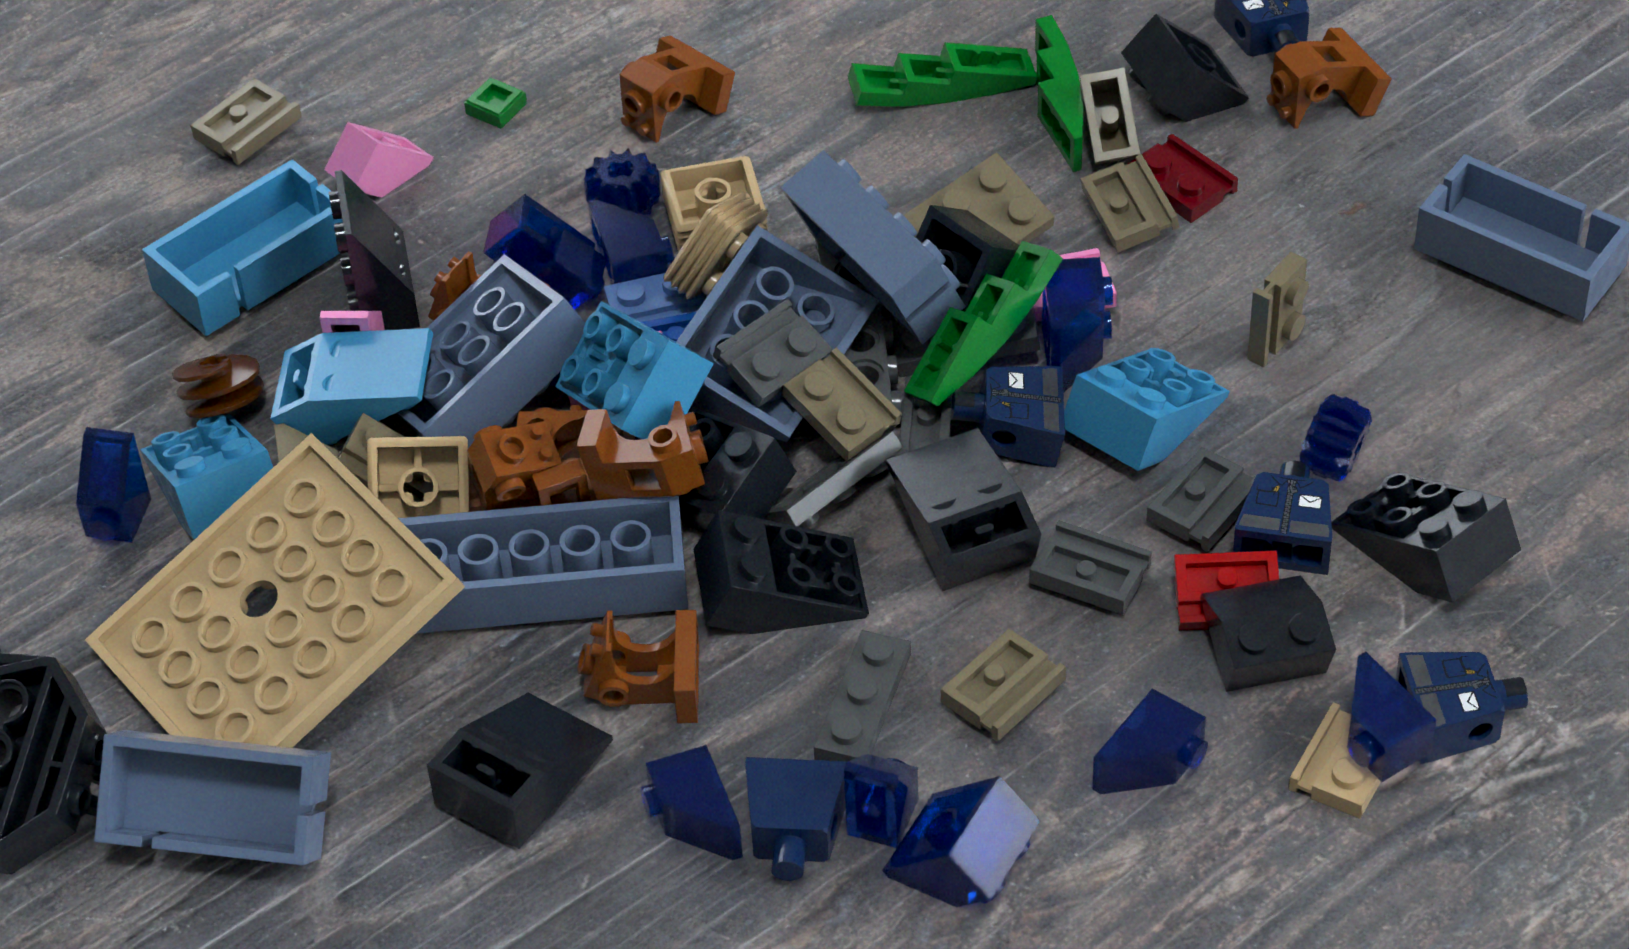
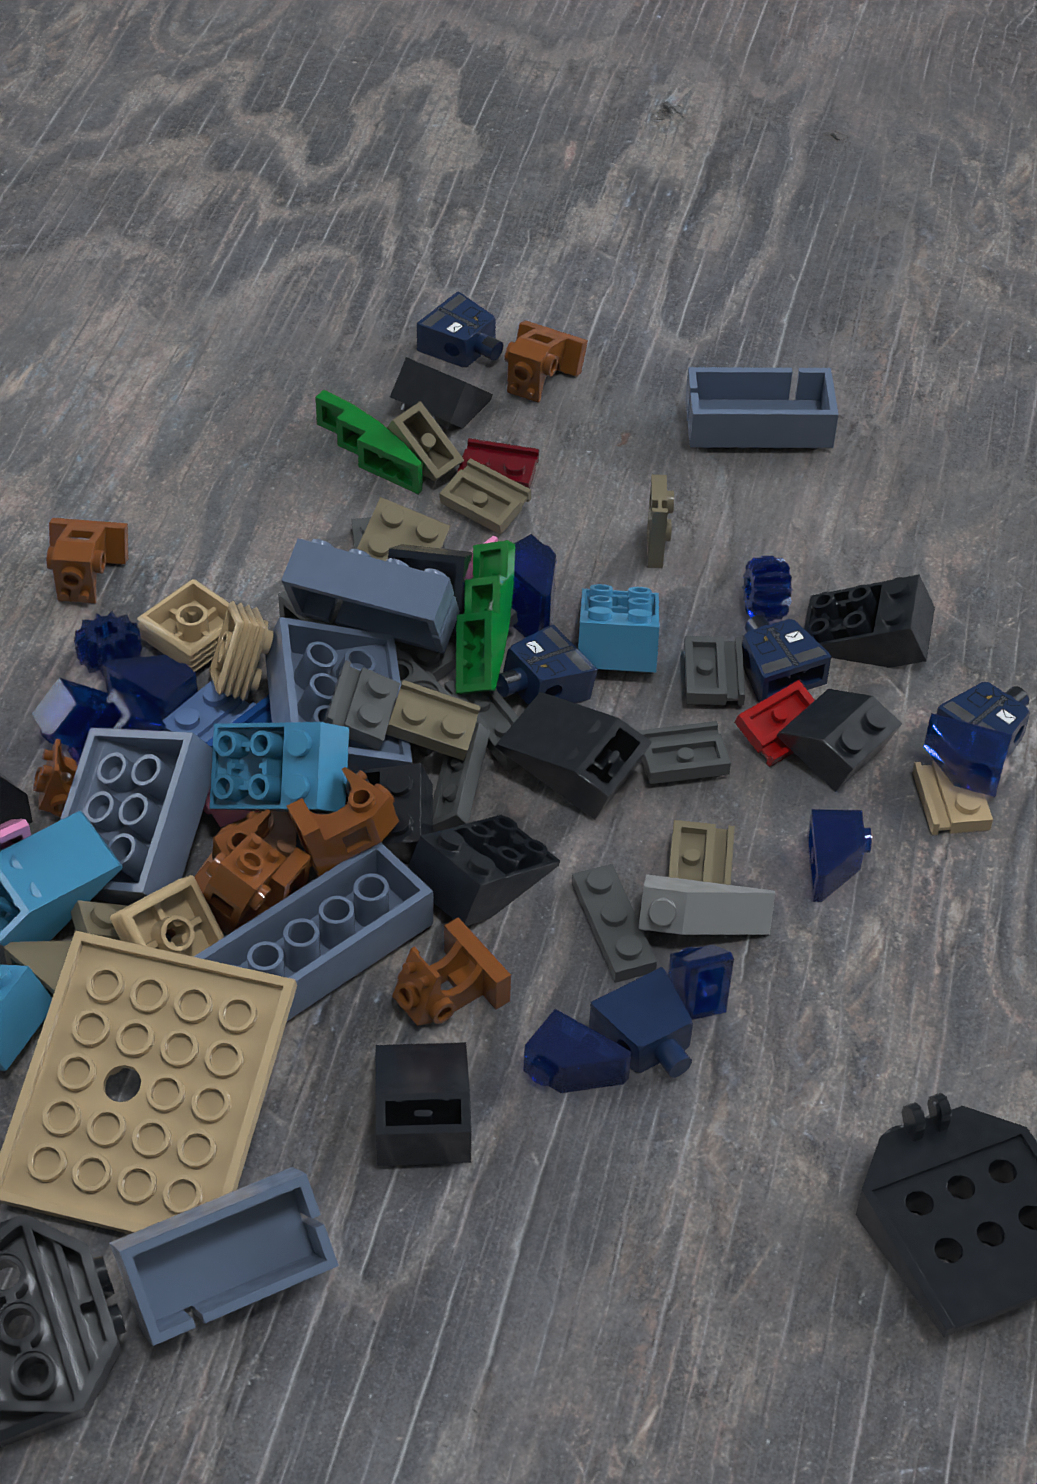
camera: 40 degrees left, 0 degrees up
(950, 727) = (704, 908): none -> light grey slope
(954, 76) = (277, 464): green slope -> none
(964, 843) = (778, 982): clear blue slope -> none

